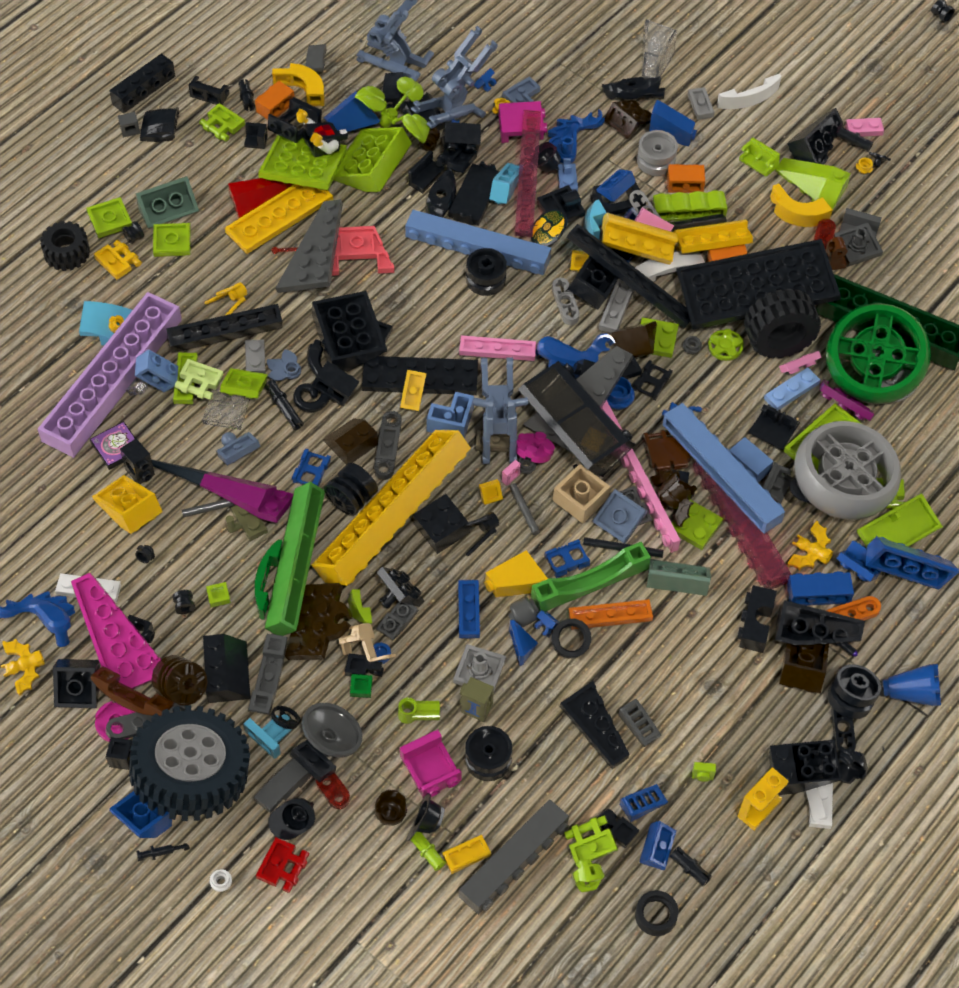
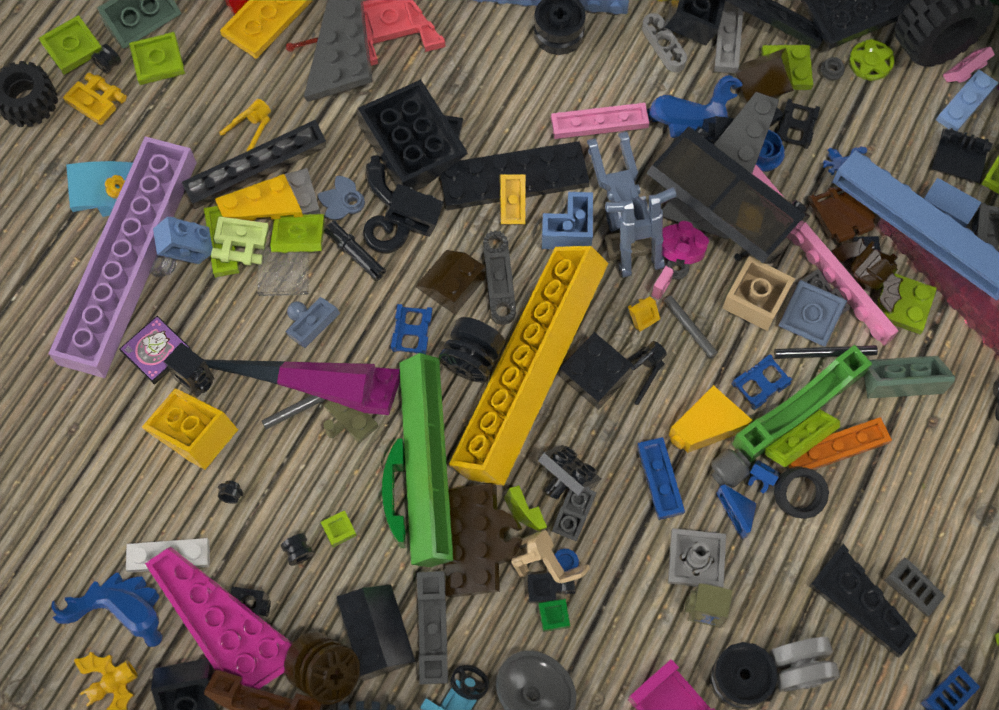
camera: 10 degrees left, 10 degrees up
(222, 354) = (265, 199): none -> yellow wing
(420, 710) = (639, 633): lime piece -> none
(535, 753) = (804, 664): none -> light grey wheel
(584, 601) = (802, 438): none -> lime tile

